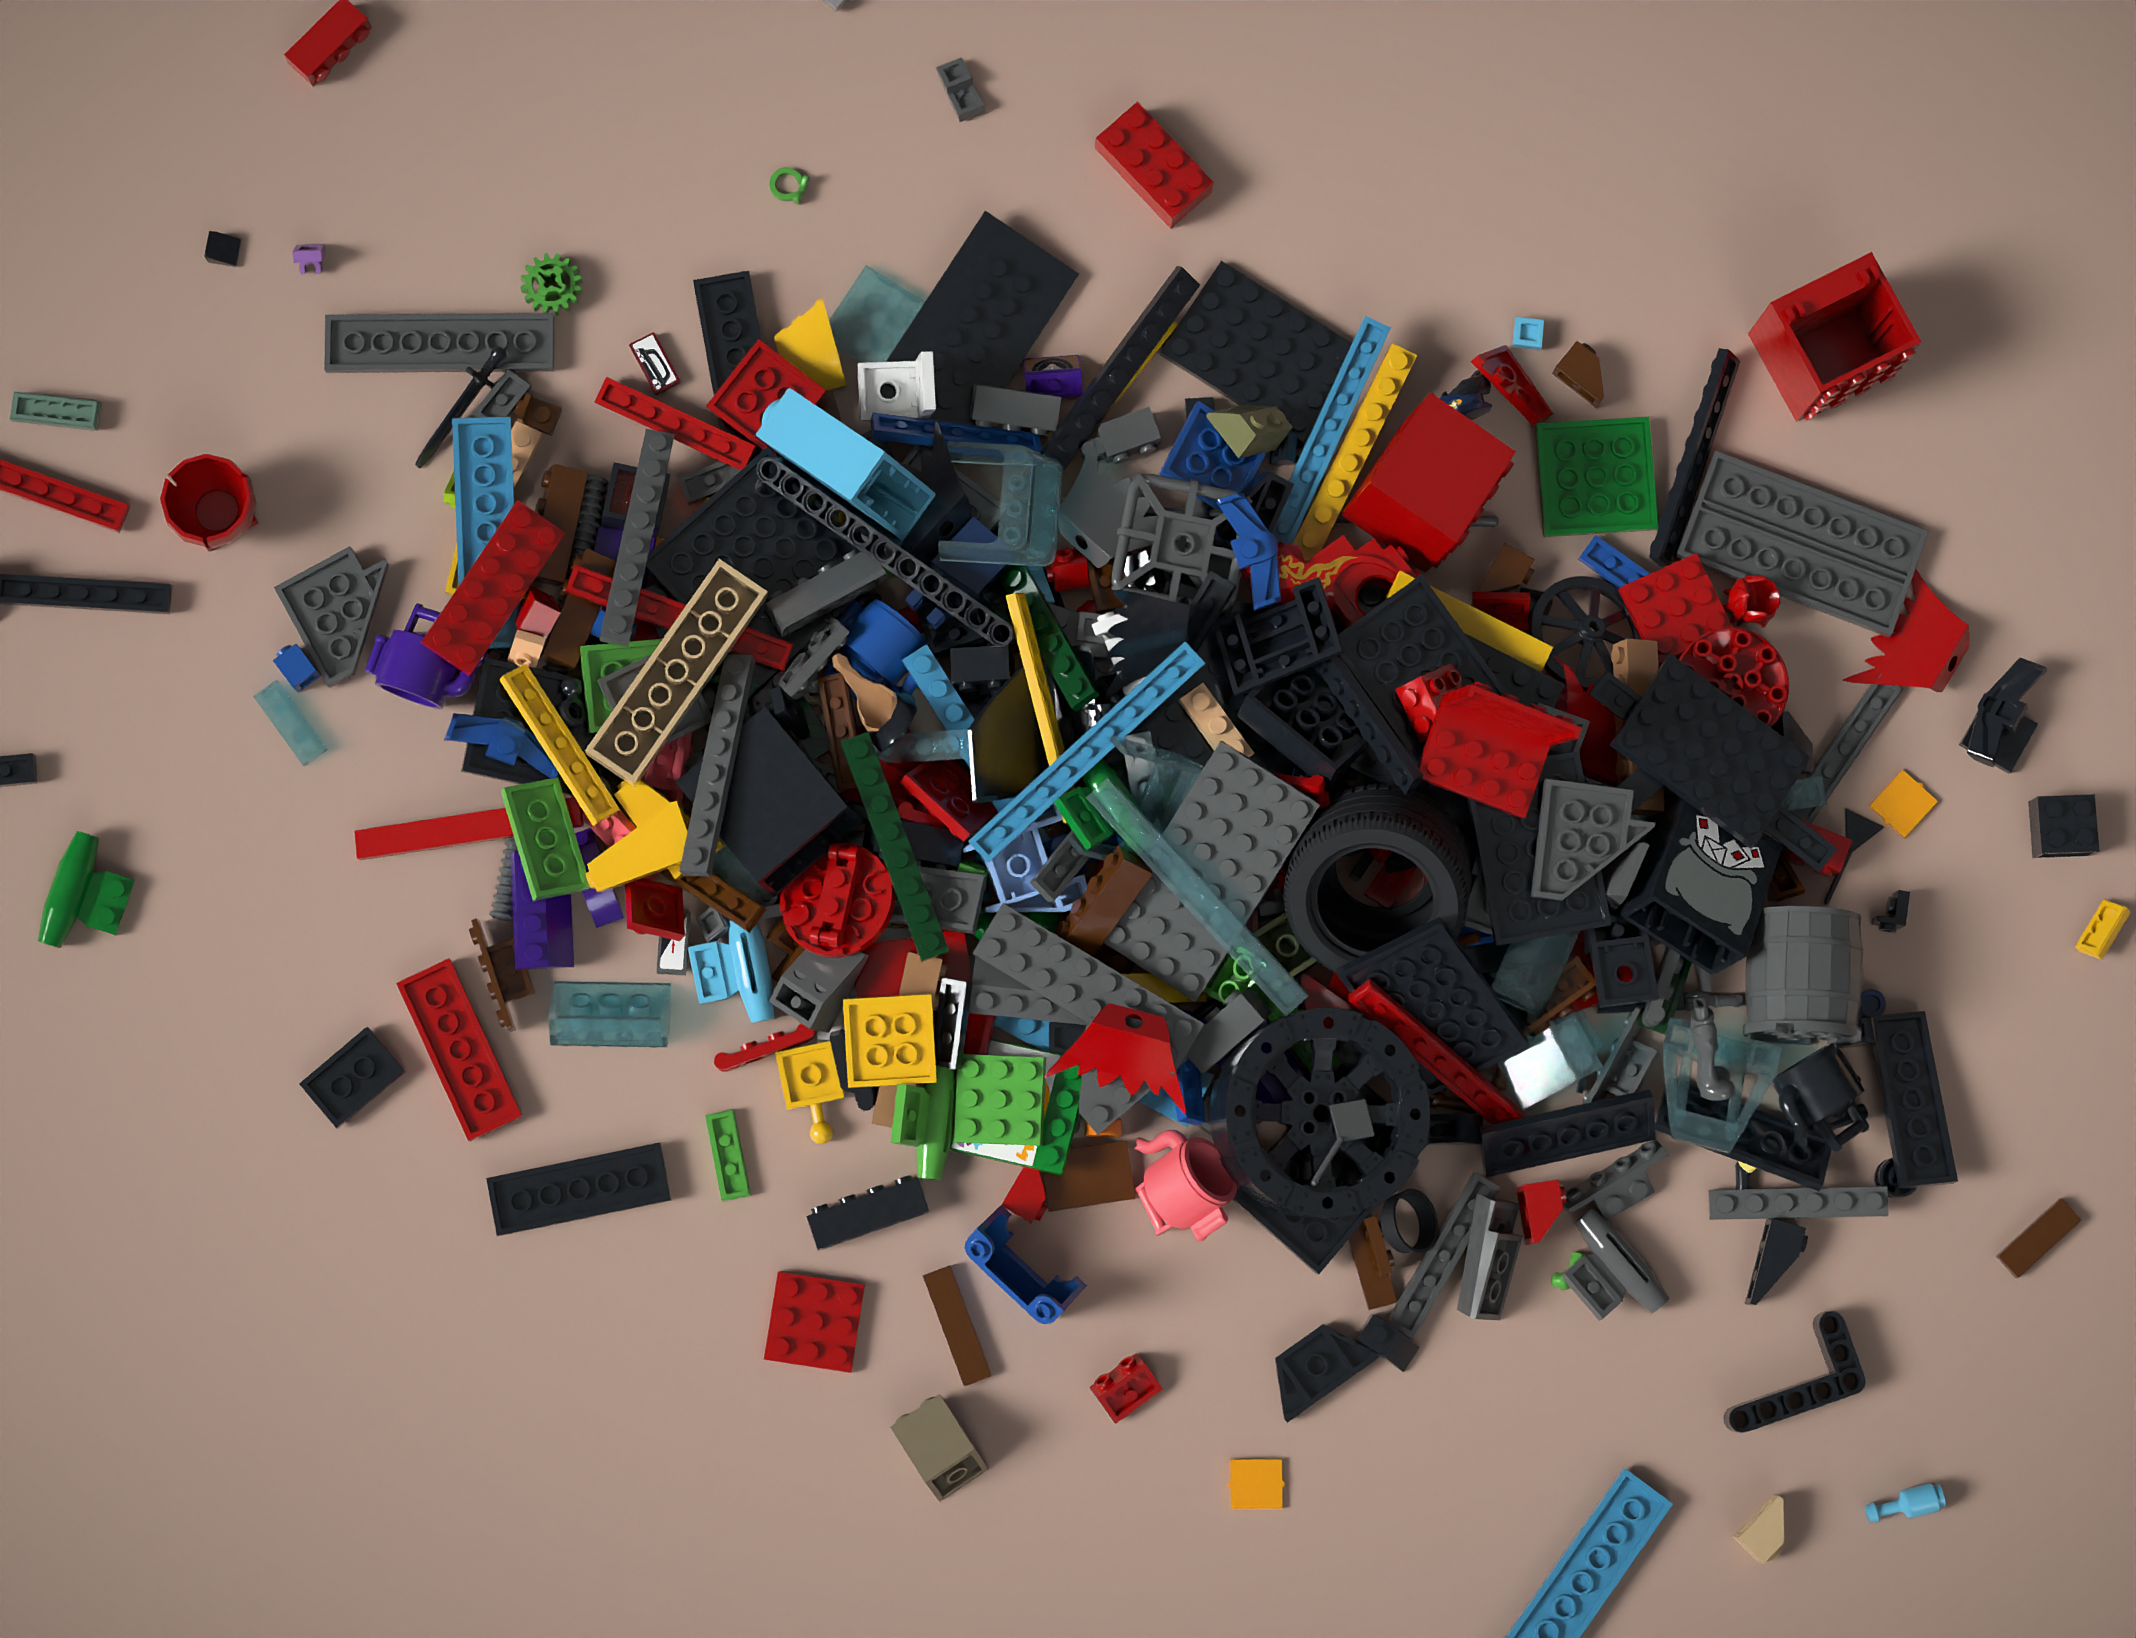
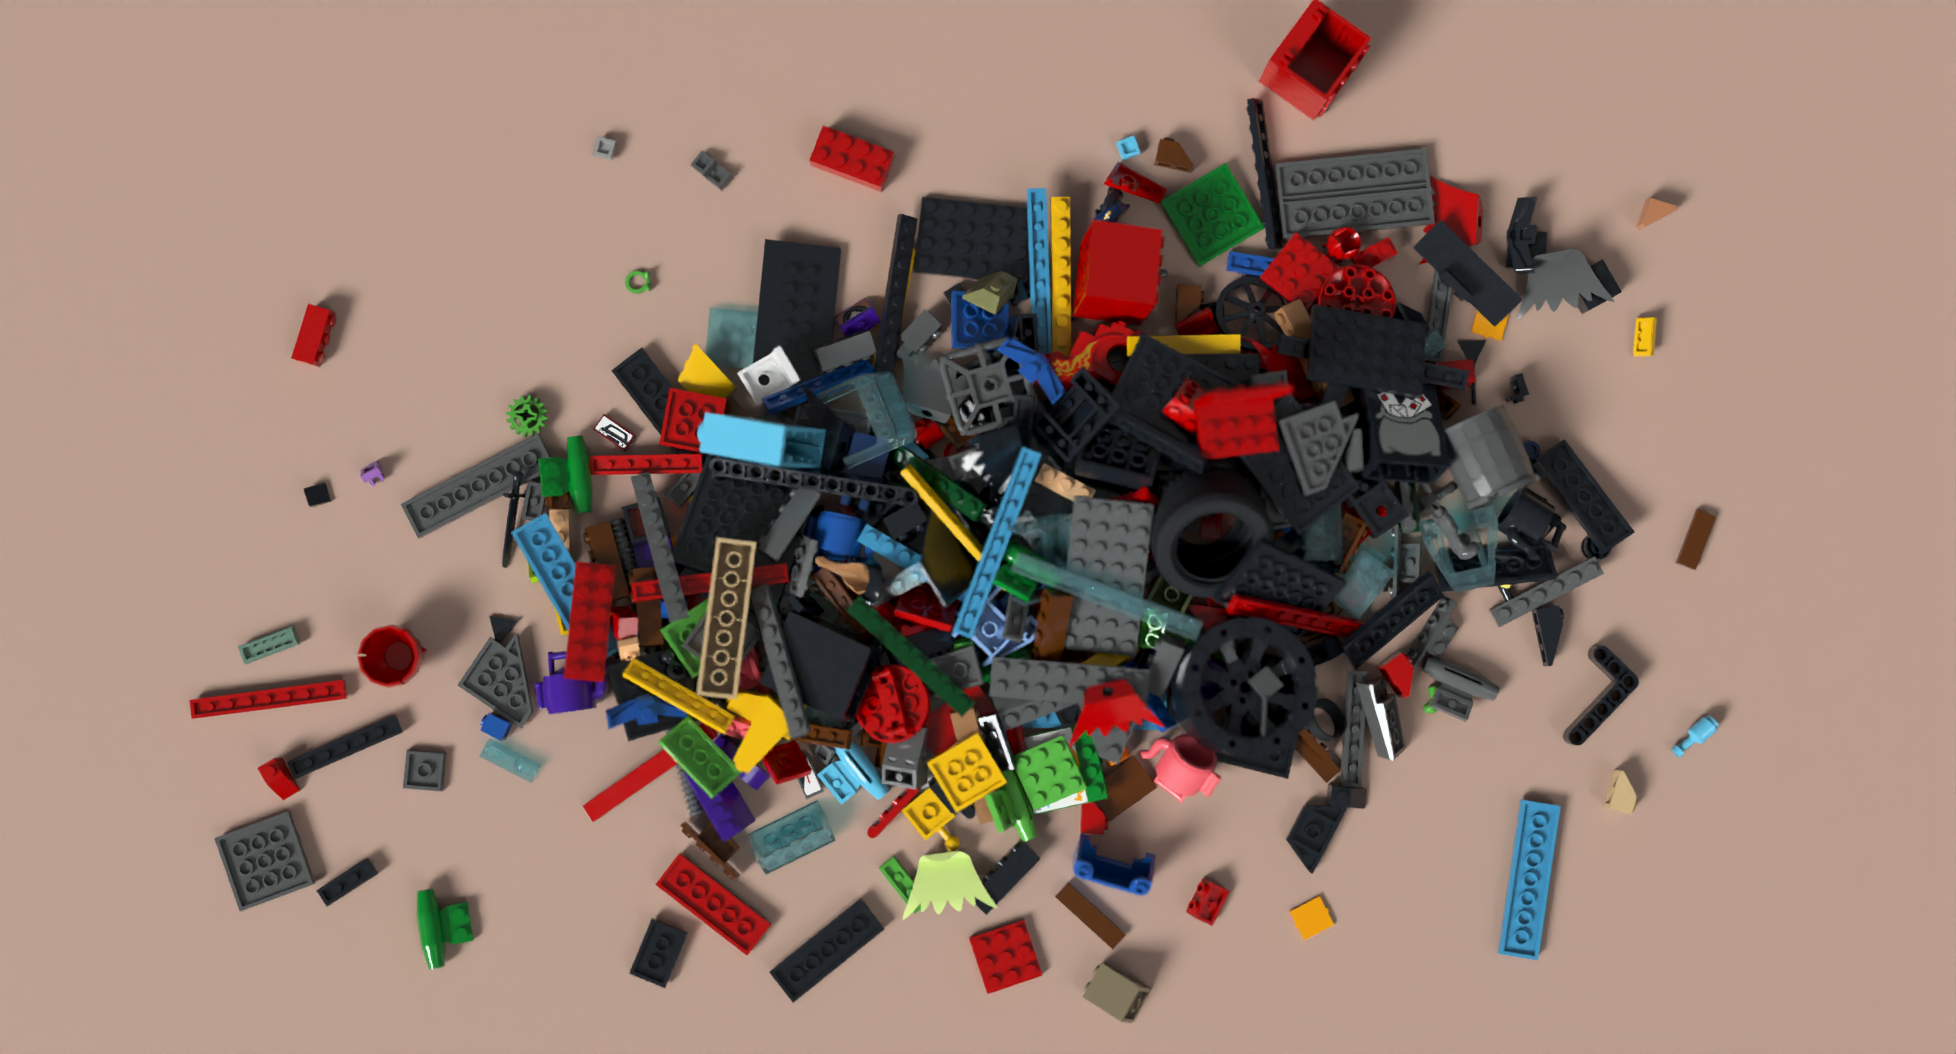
camera: 20 degrees left, 5 degrees up
(171, 678) = (424, 770): none -> dark grey tile
(371, 542) = (501, 627): none -> black piece
(566, 387) = (569, 475): none -> green plate
(787, 1172) = (946, 878): none -> yellowish green piece
(1793, 637) = (1376, 254): none -> red slope
(1901, 723) = (1467, 273): none -> black bracket
(2024, 788) = (1558, 277): none -> dark grey piece

